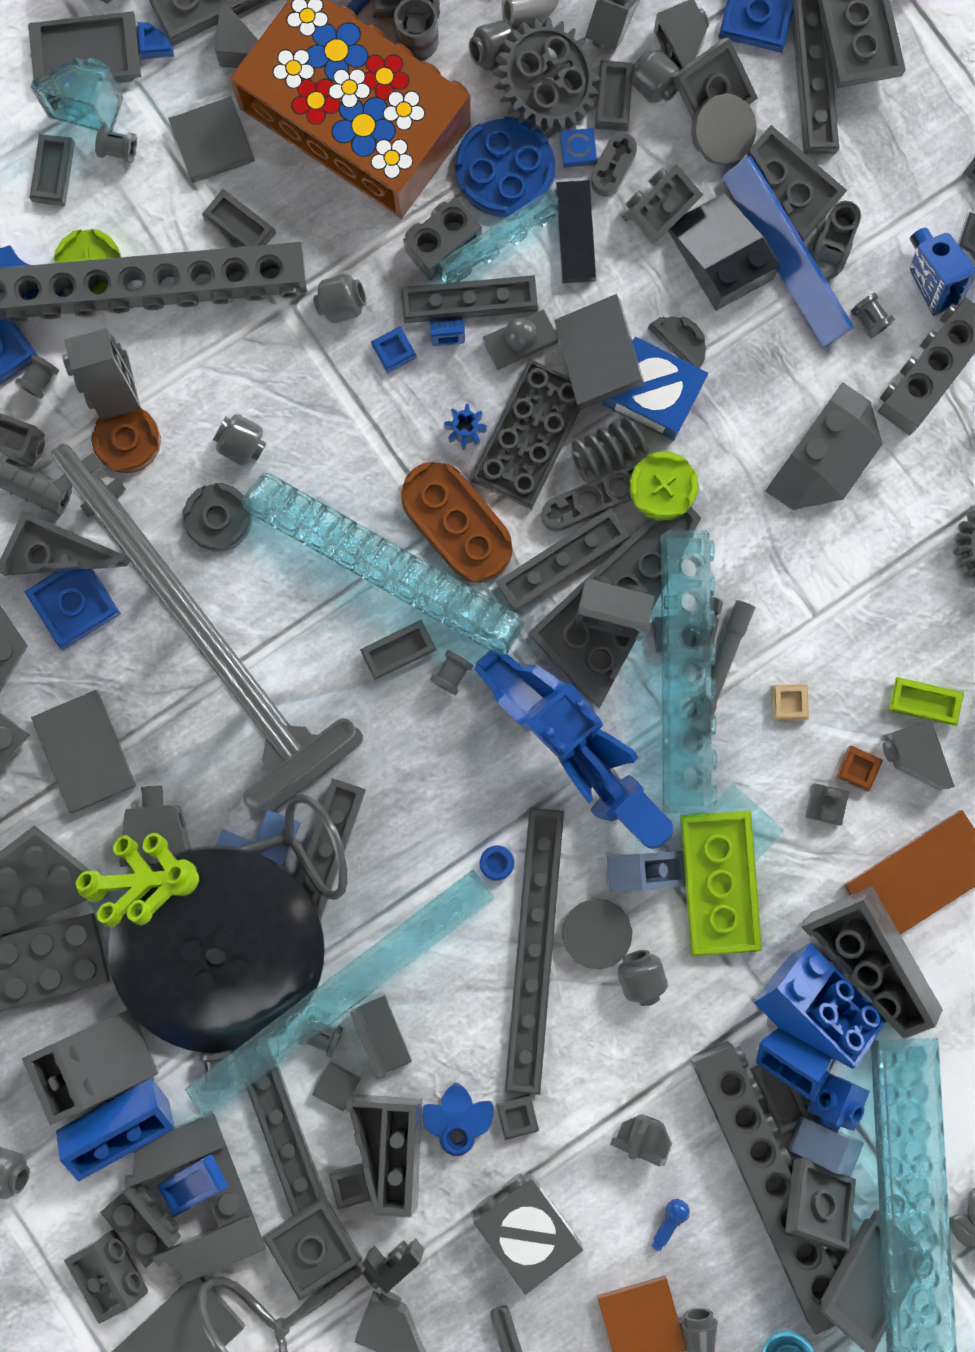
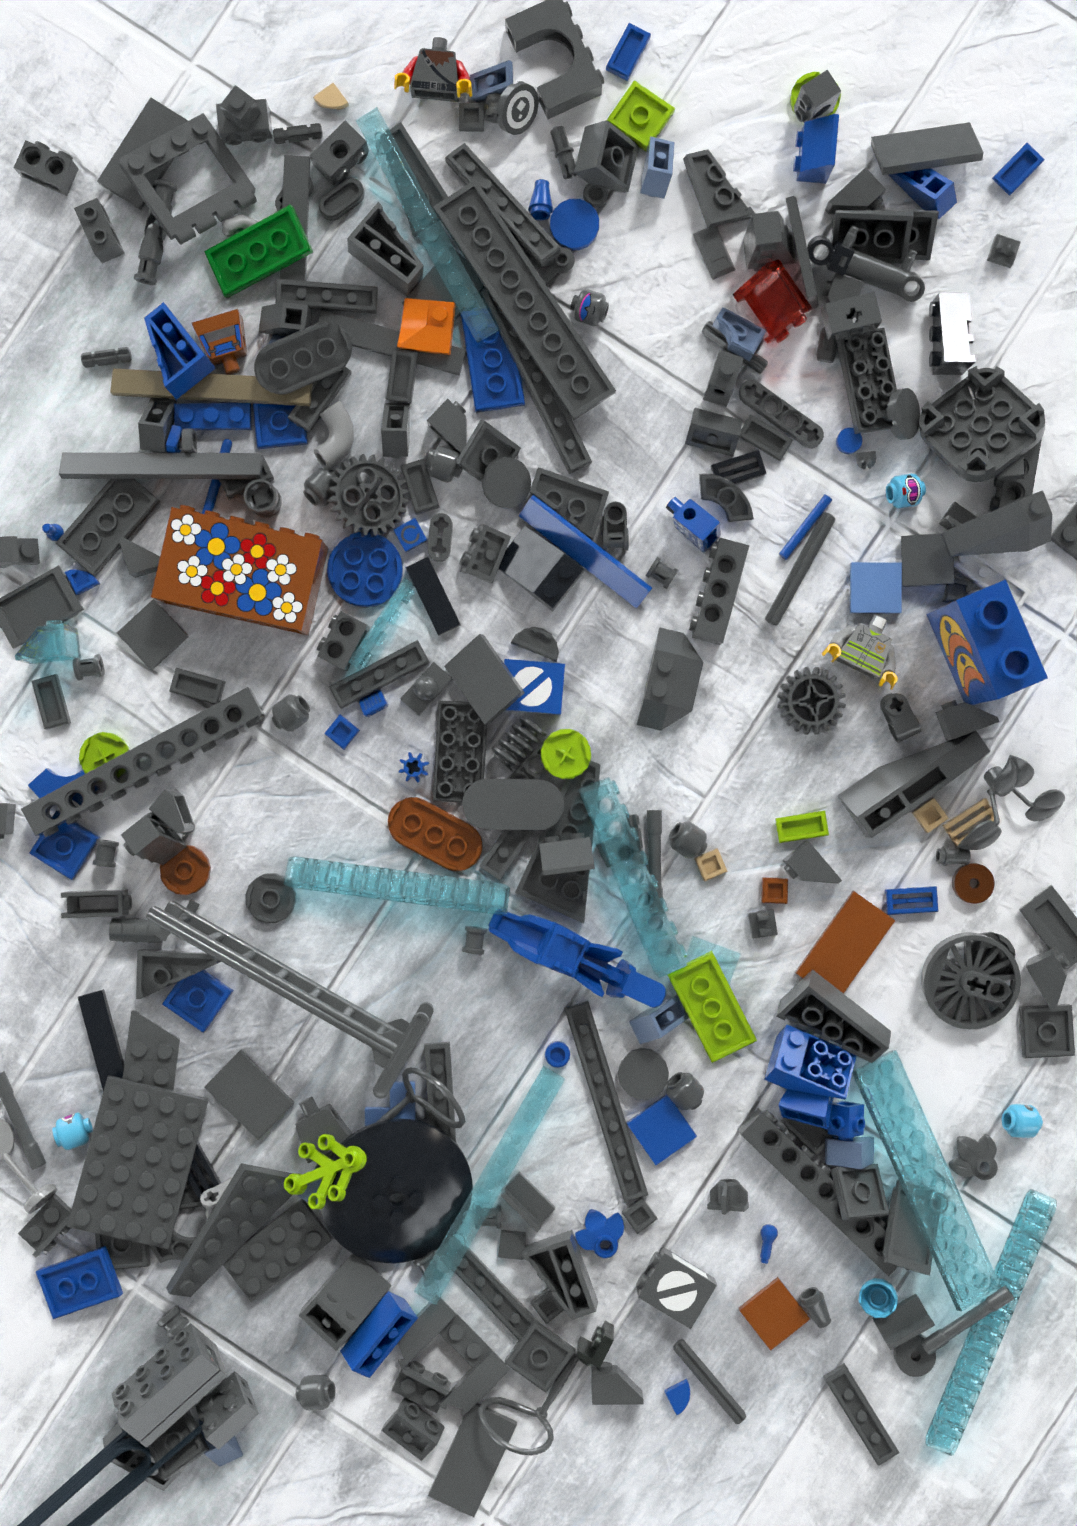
camera: 20 degrees left, 5 degrees up
(143, 353) = (173, 811): none -> dark grey tile
(192, 1185) = (445, 1349): blue tile -> none
(239, 439) = (263, 840): dark grey head -> none
(398, 649) = (432, 938): dark grey tile -> none
(571, 520) = (513, 804): none -> dark grey tile
(591, 1016) = (661, 1129): none -> blue tile
(775, 657) = (688, 839): none -> dark grey head

